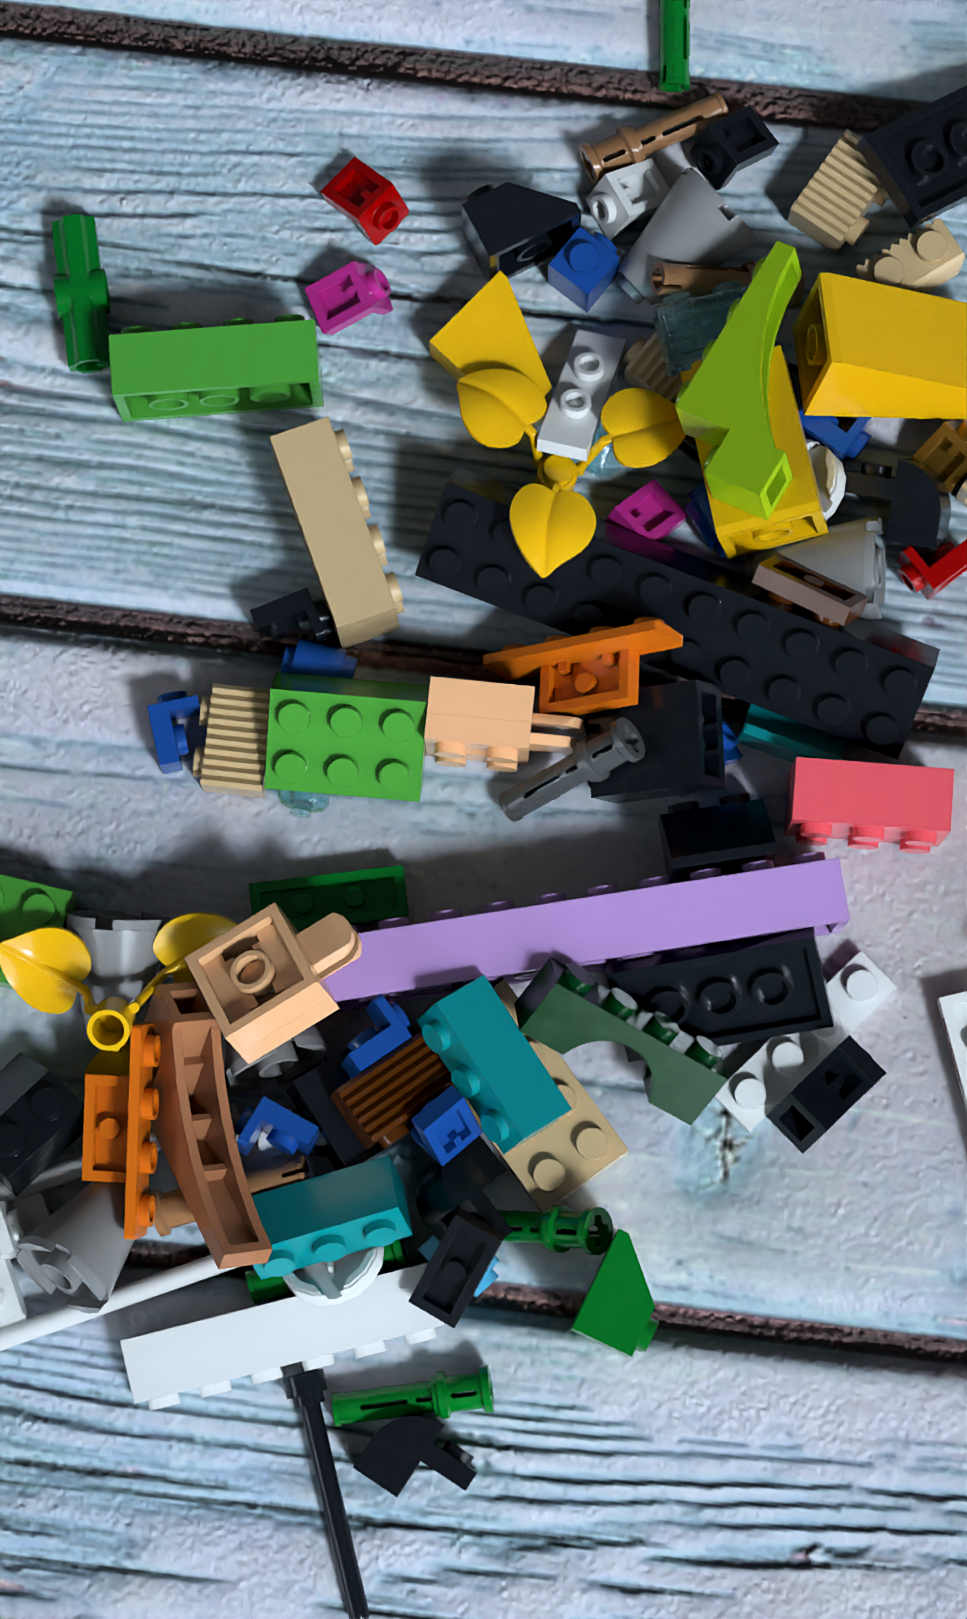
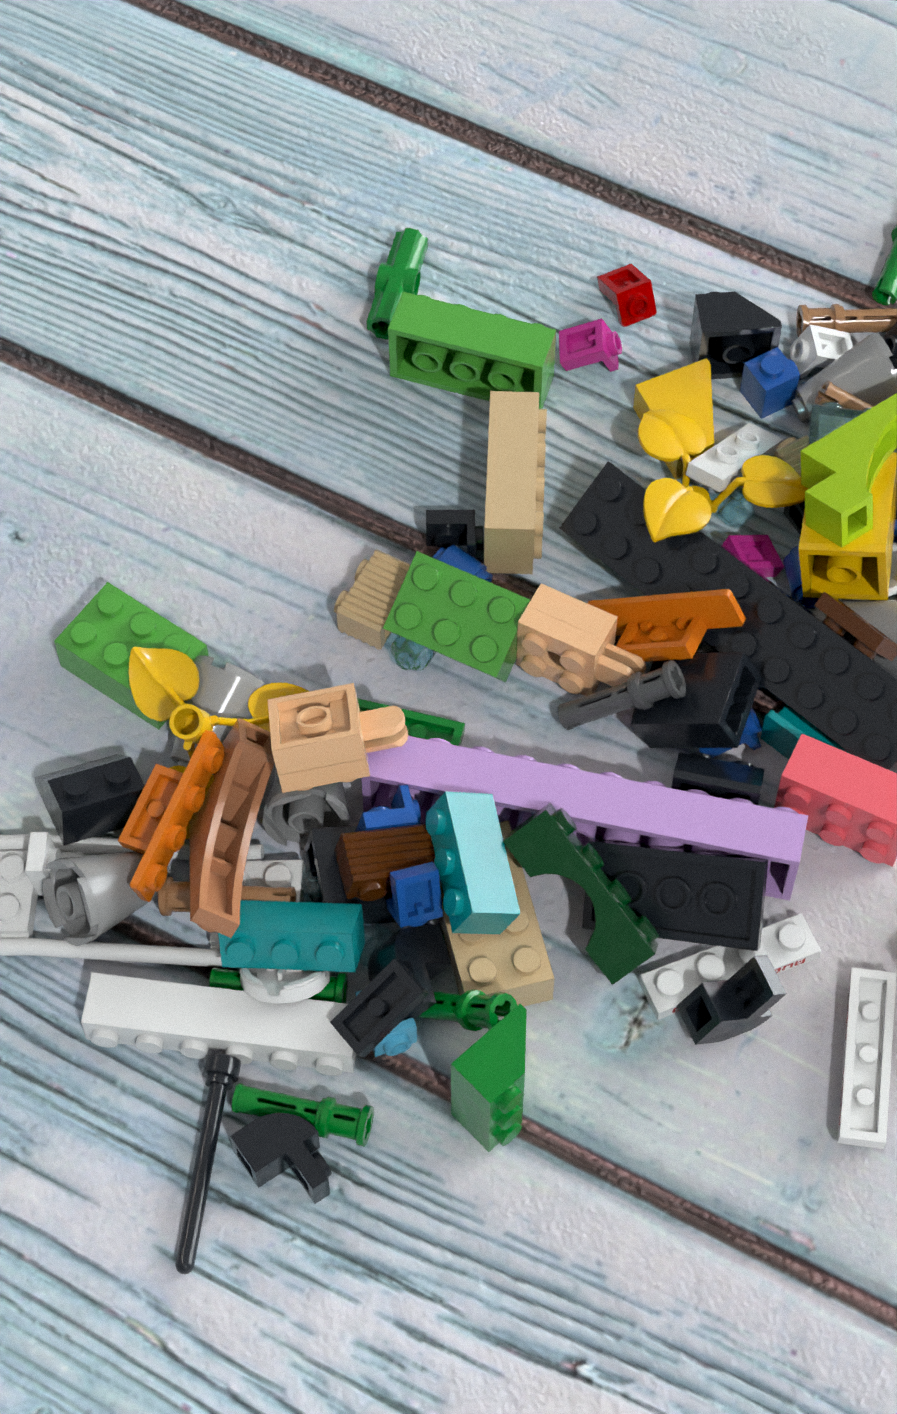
camera: 20 degrees right, 20 degrees down
(170, 738) = (331, 568): blue bracket -> none
(285, 1129) = (287, 856): blue bracket -> none

